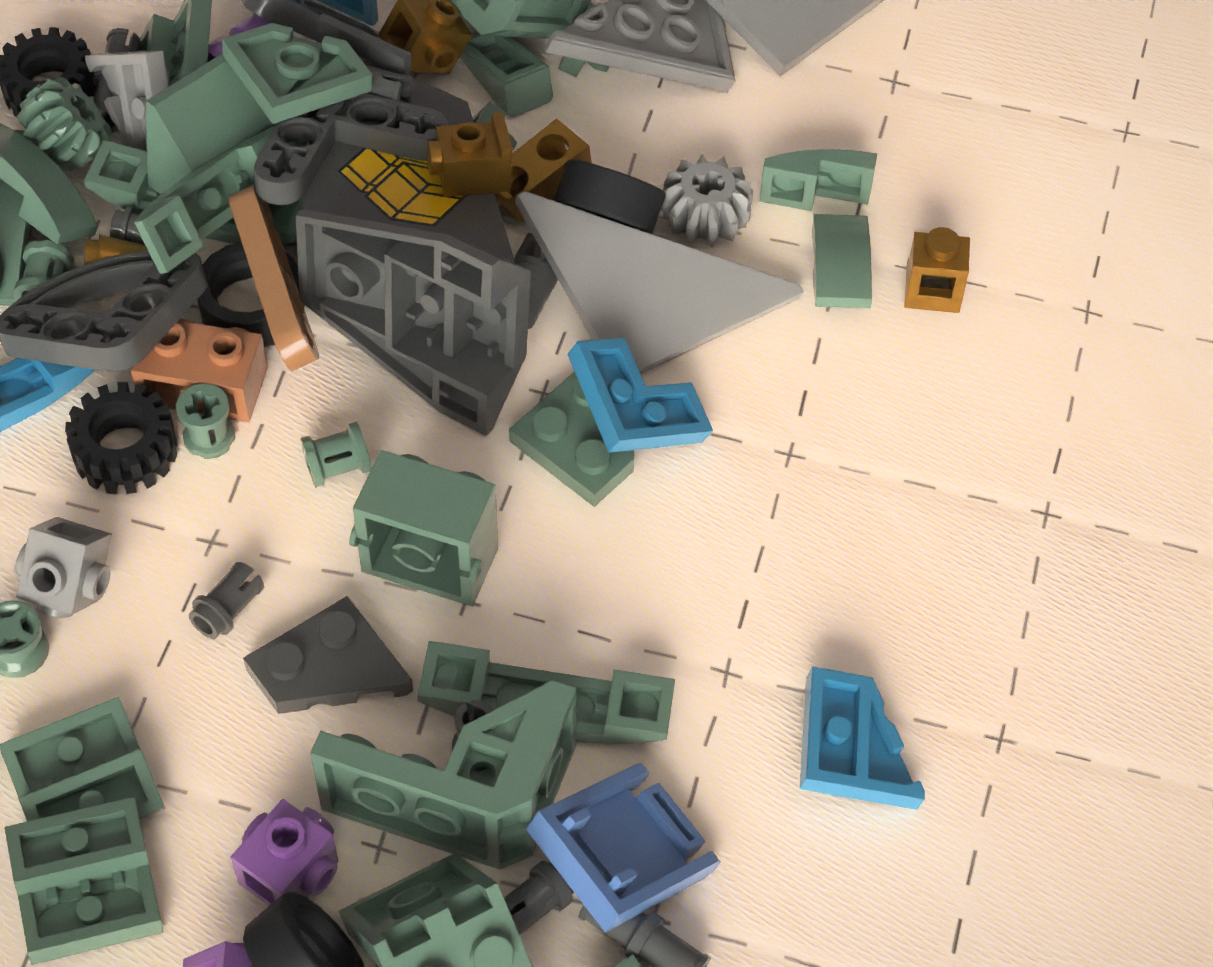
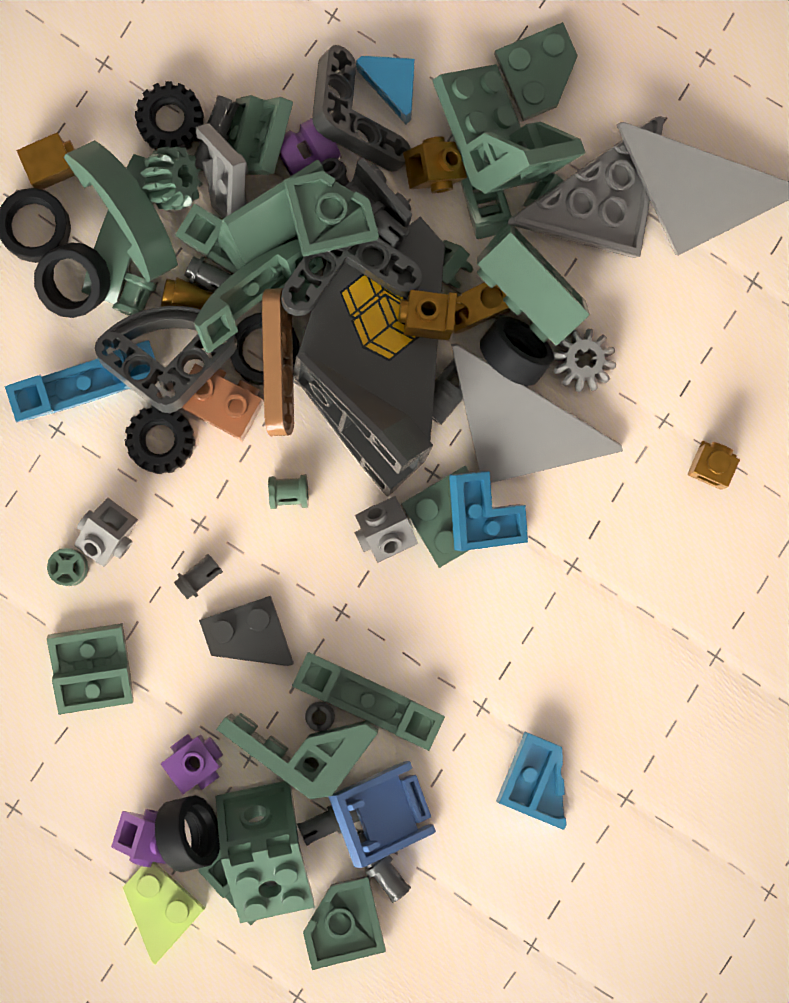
camera: 15 degrees right, 30 degrees up
(83, 880) = (79, 736): sand green slope -> none
(215, 417) = (205, 437): sand green bush -> none
(426, 527) = (327, 574): sand green brick -> none
(500, 451) = (385, 530): none -> light grey brick
(604, 105) = (531, 285): none -> sand green slope
(799, 176) = (654, 360): sand green slope -> none
(842, 261) = (656, 433): sand green slope -> none

